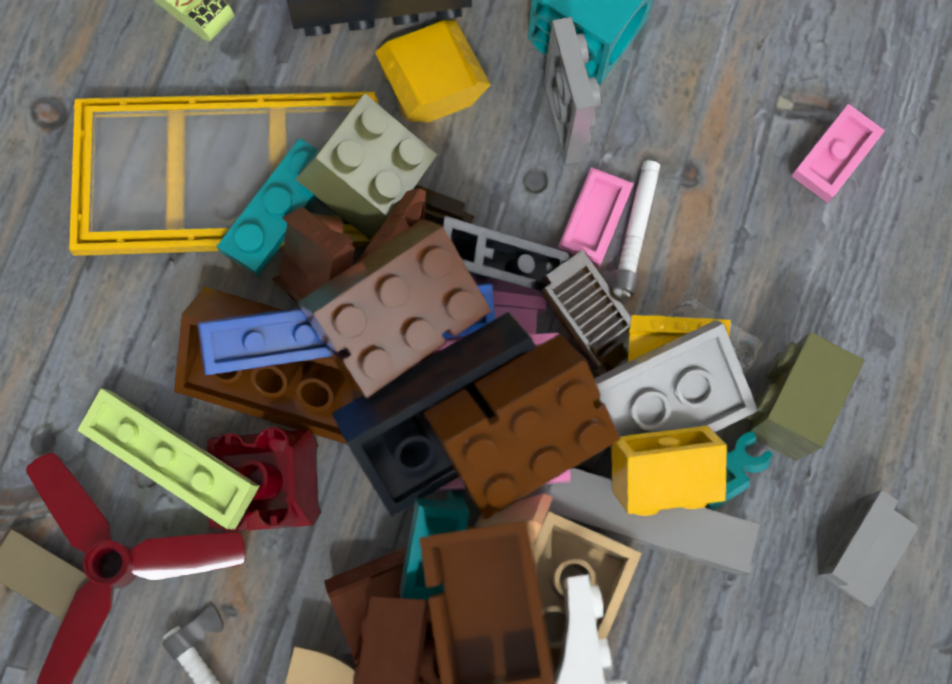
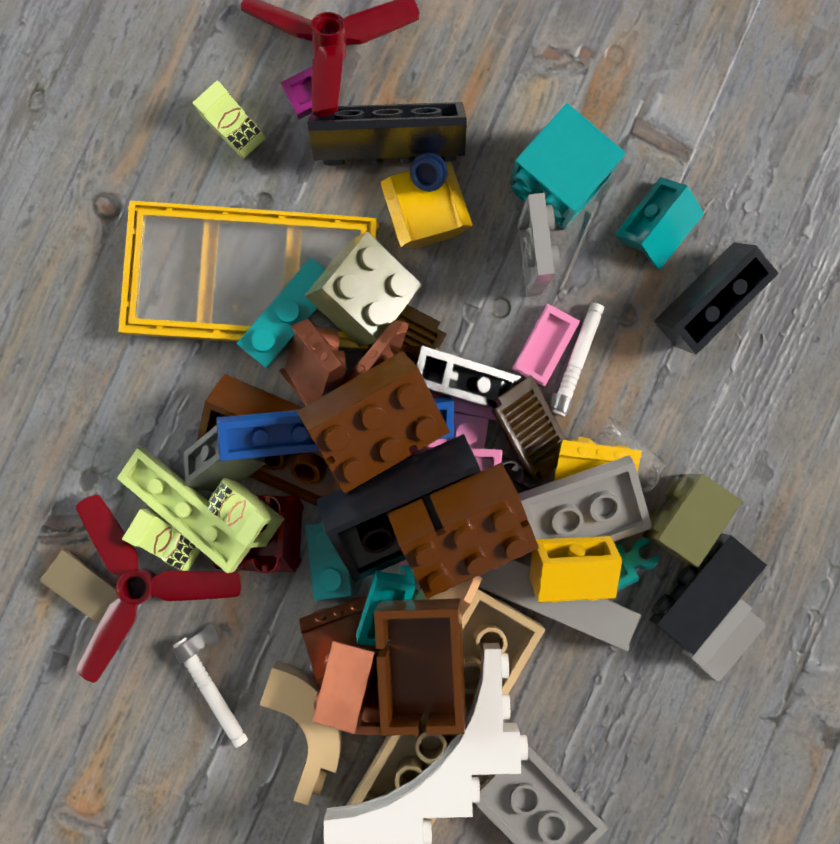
camera: 10 degrees right, 10 degrees up
(140, 500) = (161, 539): none -> yellowish green leg
(205, 402) = (206, 471): none -> dark grey panel
(242, 451) = (244, 513): none -> yellowish green leg
(354, 508) = (328, 571): none -> teal plate
(431, 28) = (428, 172): none -> dark blue plate
(714, 61) = (661, 221): none -> teal panel
(791, 135) = (716, 297): none -> black brick
(837, 491) = (706, 593): none -> black brick
(838, 153) = (756, 316): bright pink plate -> none

